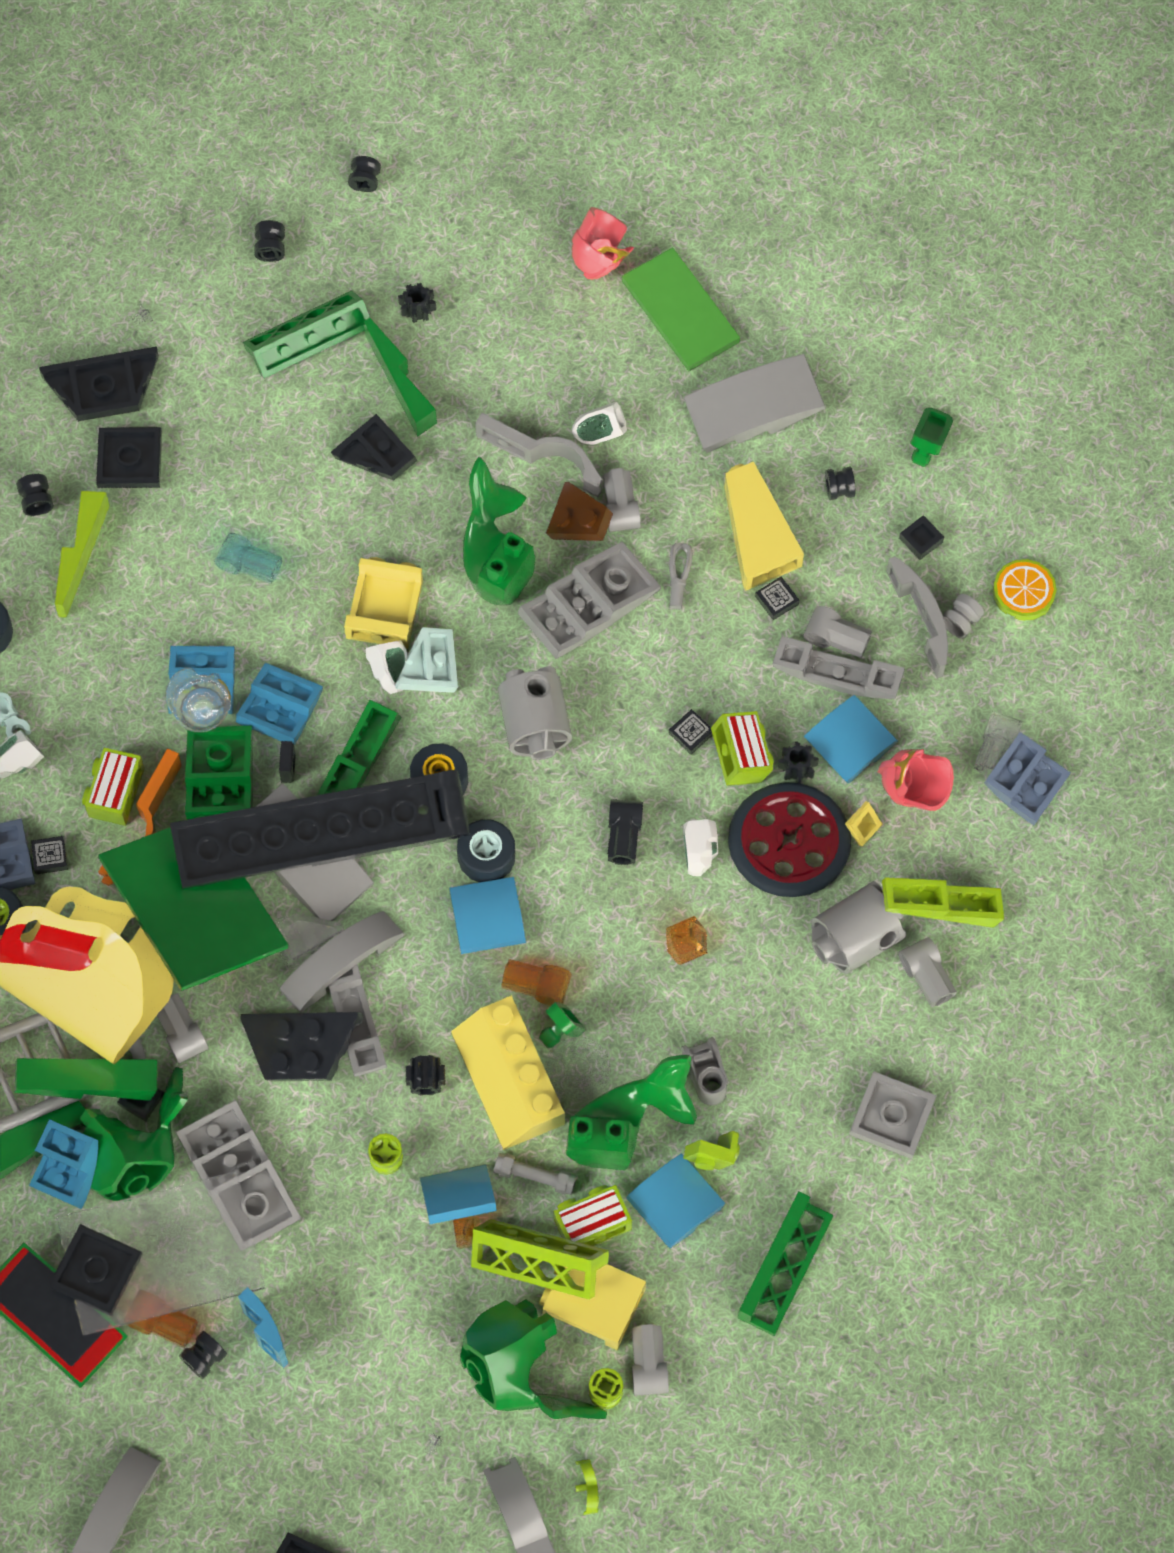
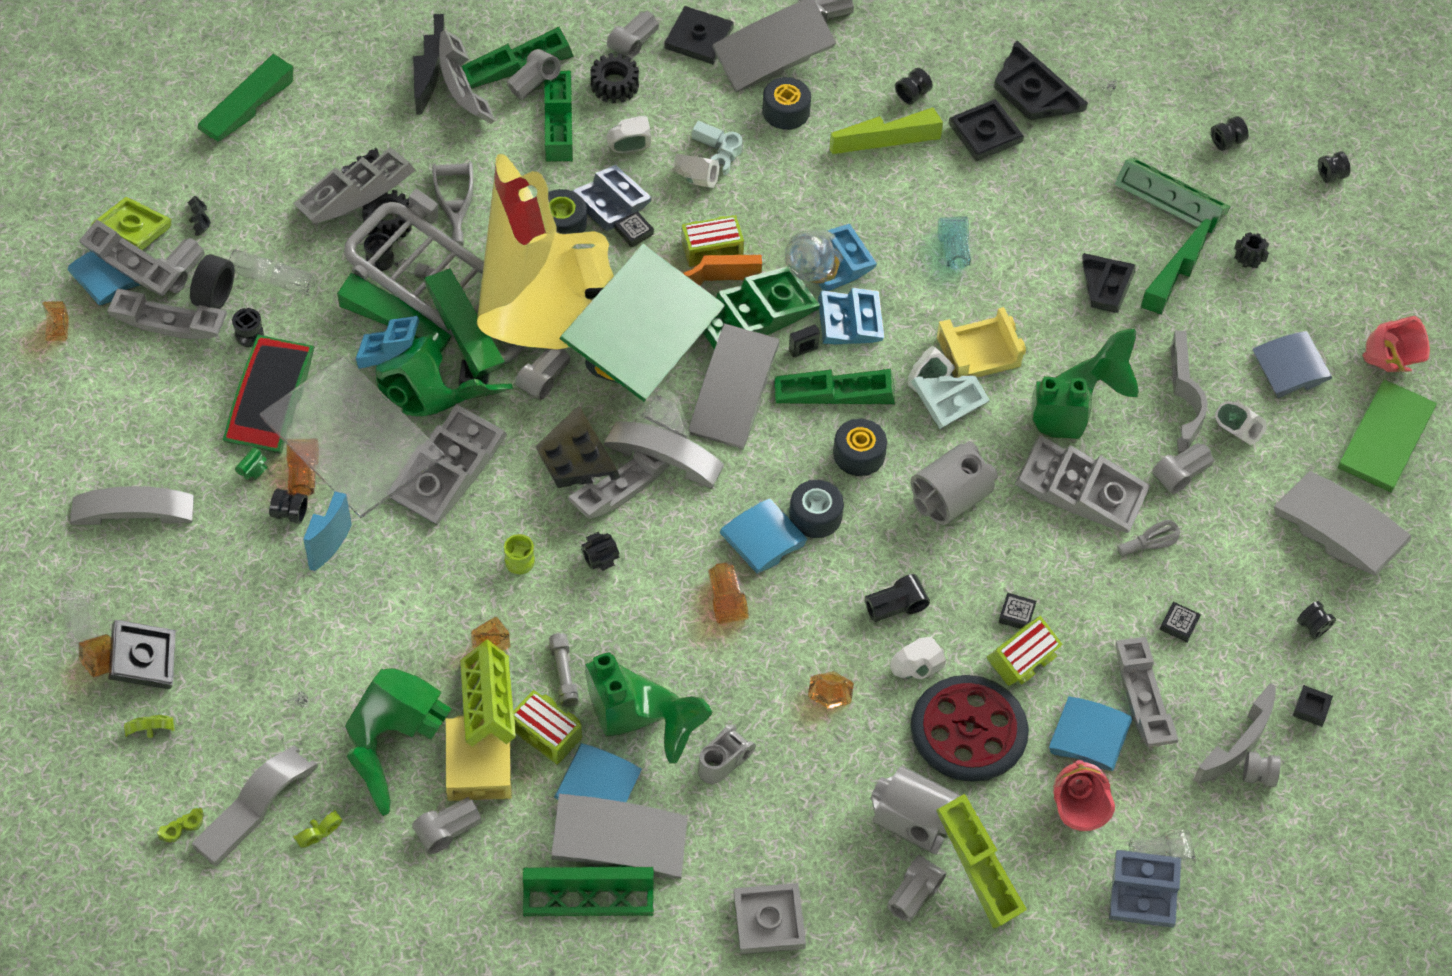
camera: 60 degrees right, 10 degrees down
(95, 1270) = (311, 394): black plate -> none
(132, 1369) = (252, 464): none -> green plate
(320, 829) = (755, 377): black hinge -> none
(458, 1194) = (511, 616): dark azure slope -> none
(508, 1073) = (639, 610): light yellow slope -> none
(560, 343) = (1292, 363): none -> sand blue slope
(565, 1023) = (700, 625): green piece -> none
(577, 1079) = (674, 670): clear tile -> none
(578, 516) = (1147, 442): reddish brown wing -> none
(601, 1392) = (406, 809): lime wheel -> none
(713, 1156) = (647, 786): lime bracket -> none
(746, 1207) = (619, 835): none -> light grey slope
(759, 529) = (1229, 577): light yellow slope -> none
(799, 770) = (1037, 708): black gear -> none
(829, 629) = (1178, 672): light grey piece -> none
(863, 823) = (1019, 777): light yellow slope -> none
(930, 435) = (1411, 666): green piece -> none
(1024, 589) = (1323, 811): tile -> none

